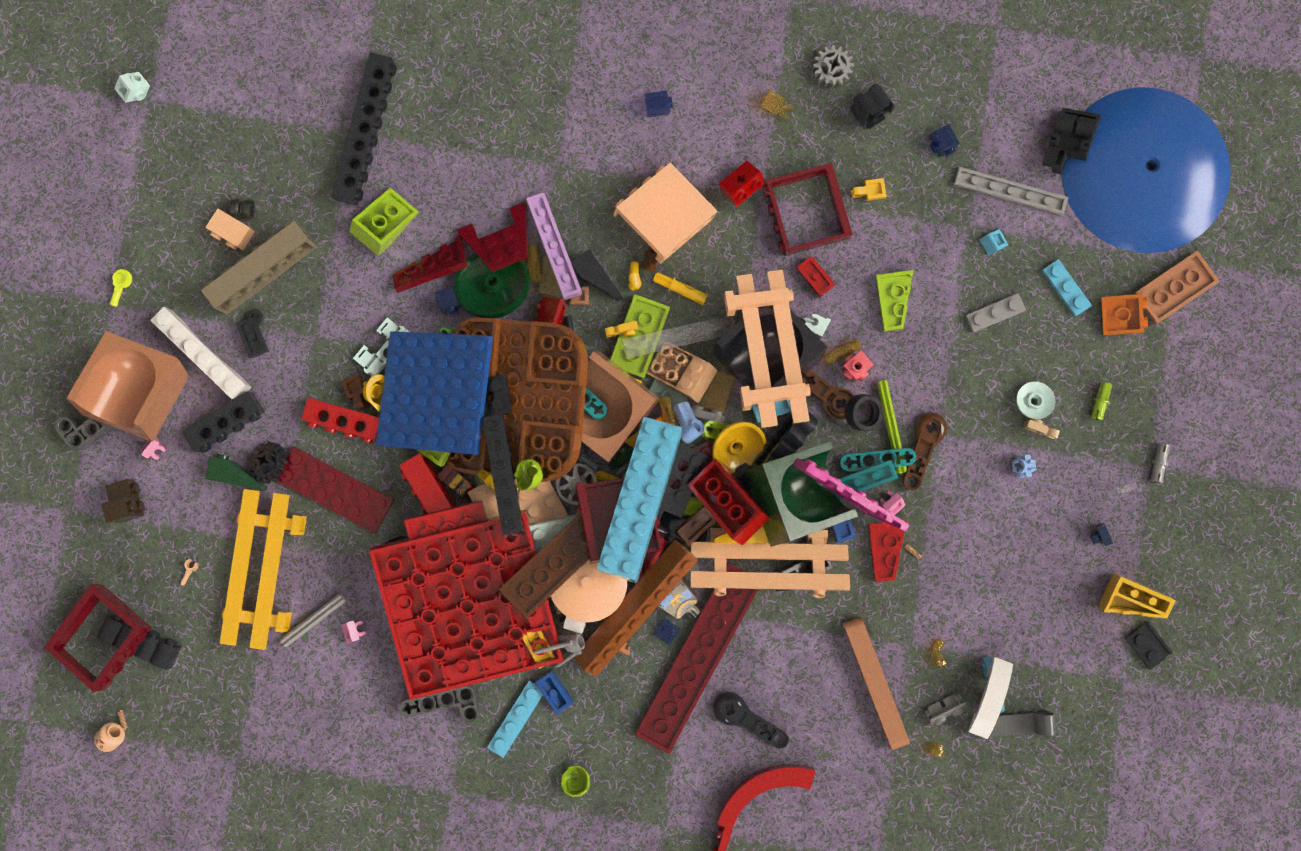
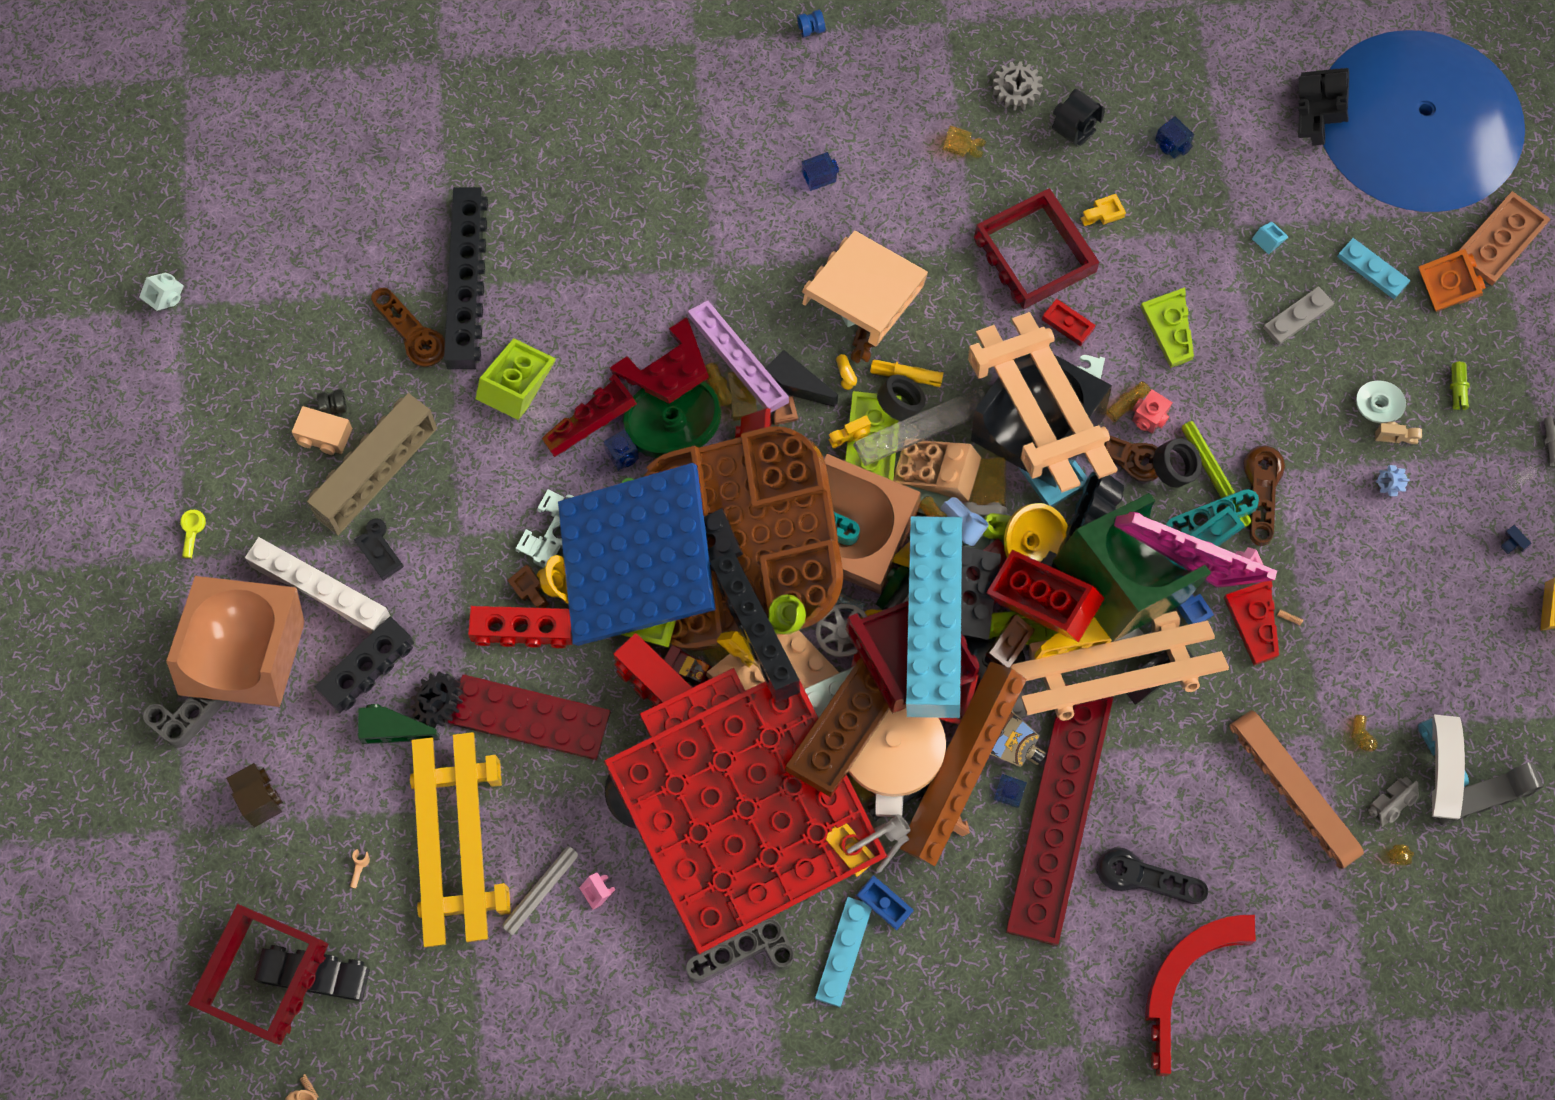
camera: 20 degrees left, 15 degrees down
(150, 447) = (274, 719): bright pink tile -> none
(313, 161) = (411, 331): none -> reddish brown beam
(578, 786) = (945, 1001): lime hair -> none
(678, 303) = (908, 389): none -> black tyre
(742, 183) = (947, 236): red brick -> none
(1010, 191) = (1270, 176): light grey tile -> none

